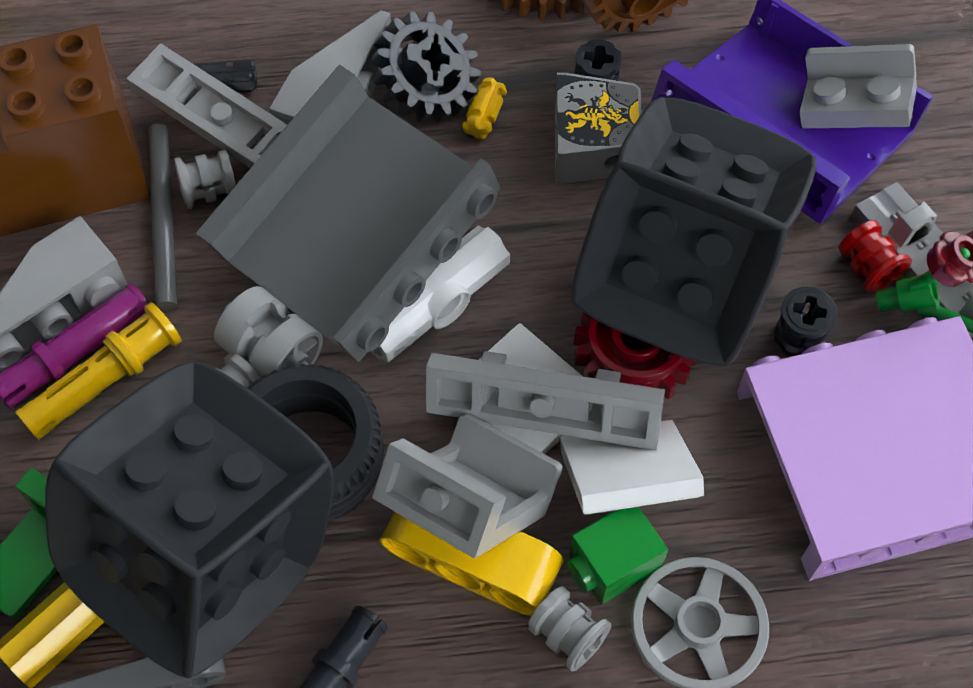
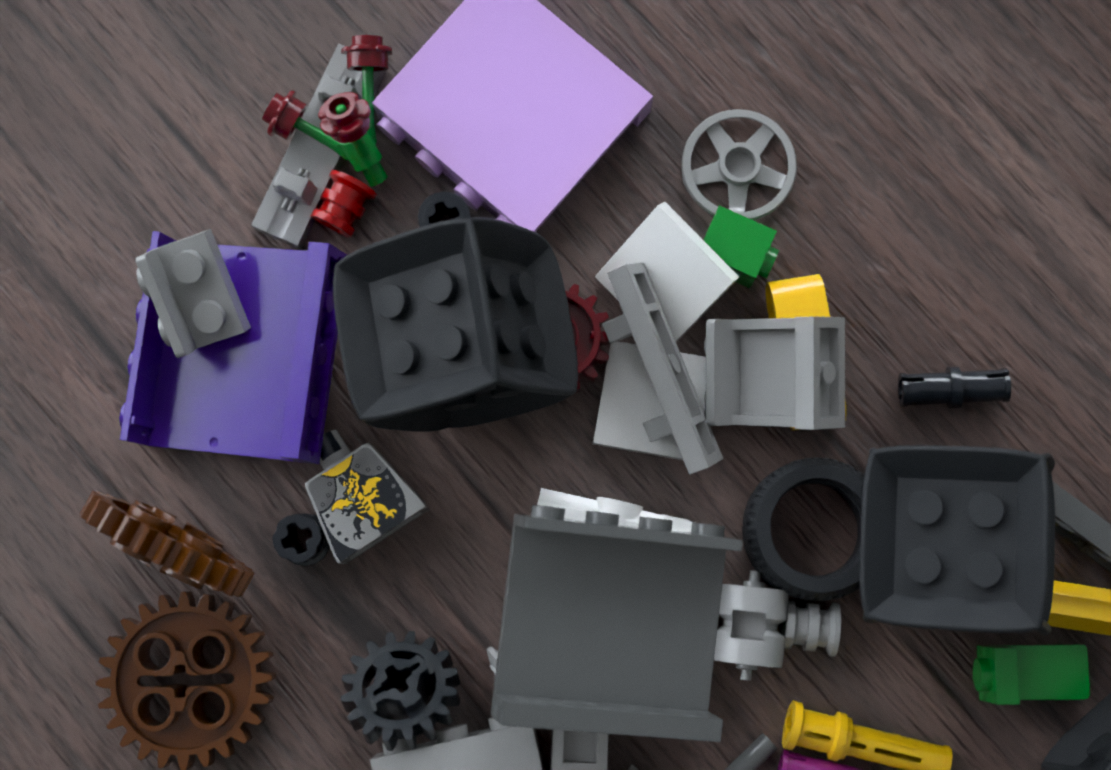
camera: 120 degrees left, 20 degrees up
(484, 108) = (399, 615): yellow piece -> none
(568, 628) = (813, 246): light grey bush -> none

